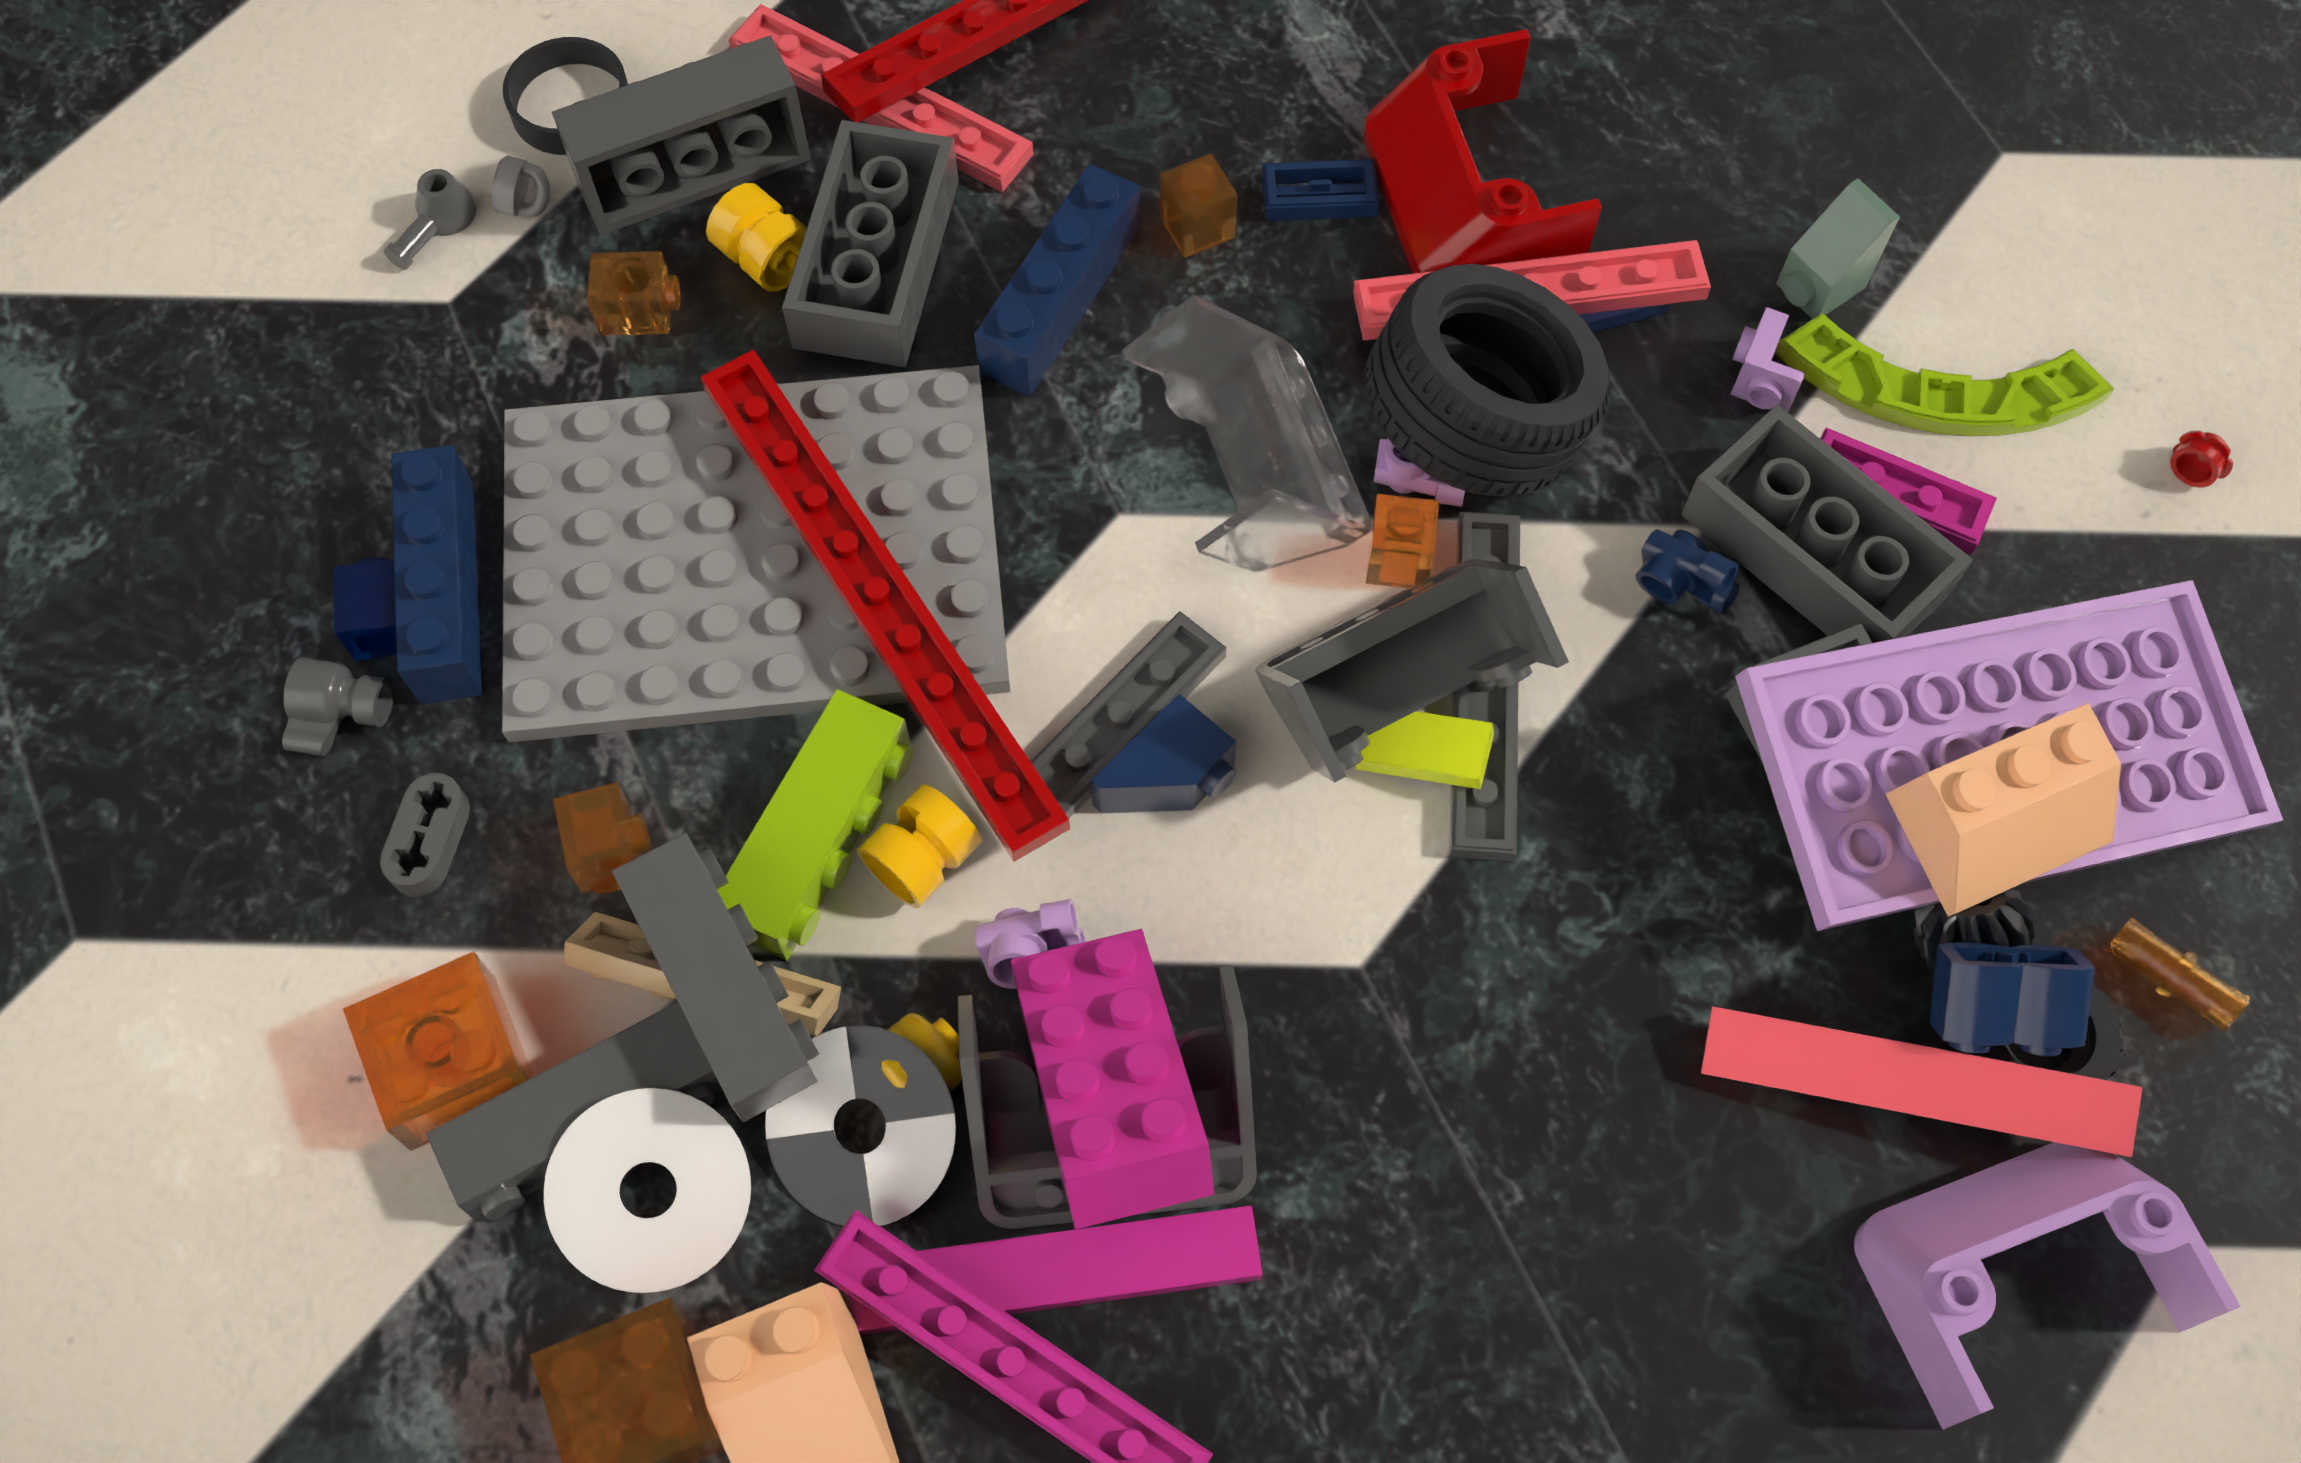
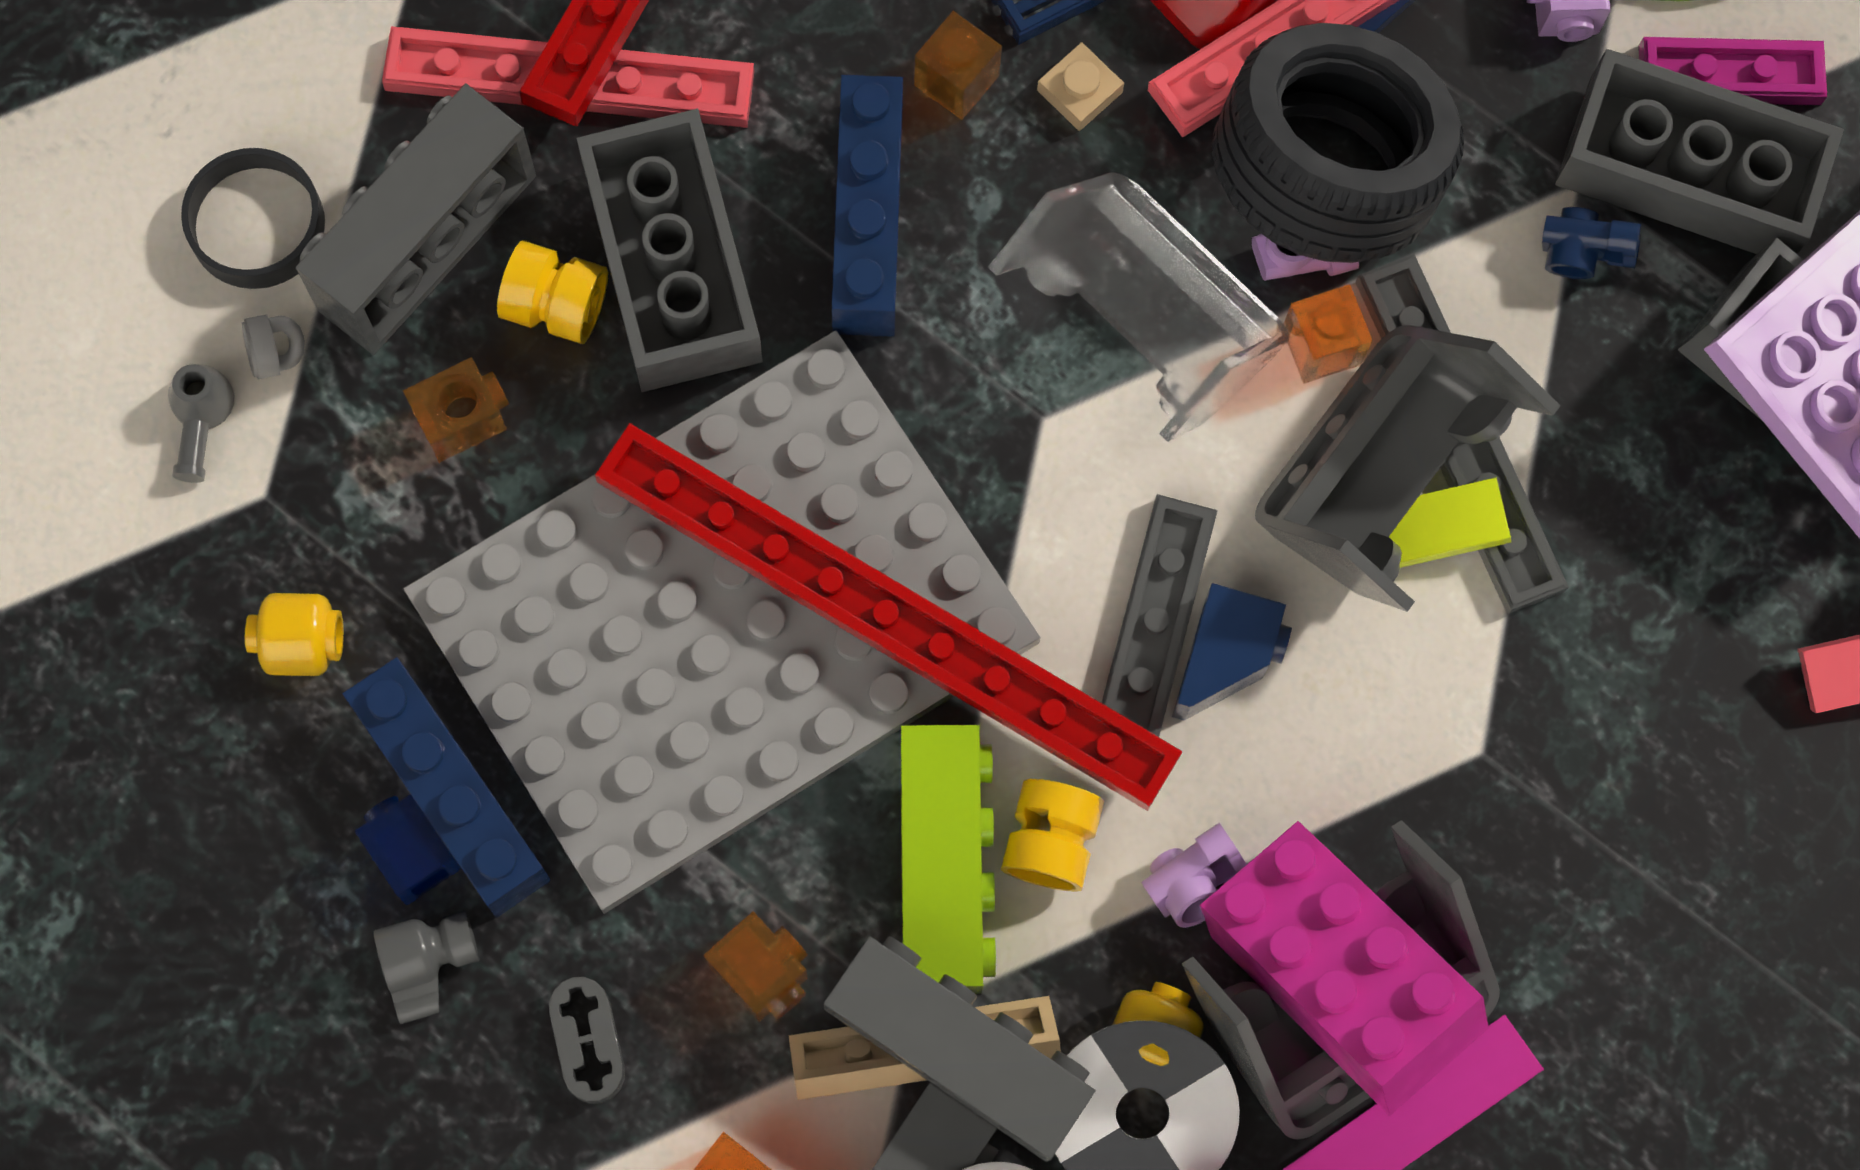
camera: 30 degrees left, 10 degrees up
(397, 406) = (295, 634): none -> yellow head
(1298, 269) = (1080, 86): none -> tan plate

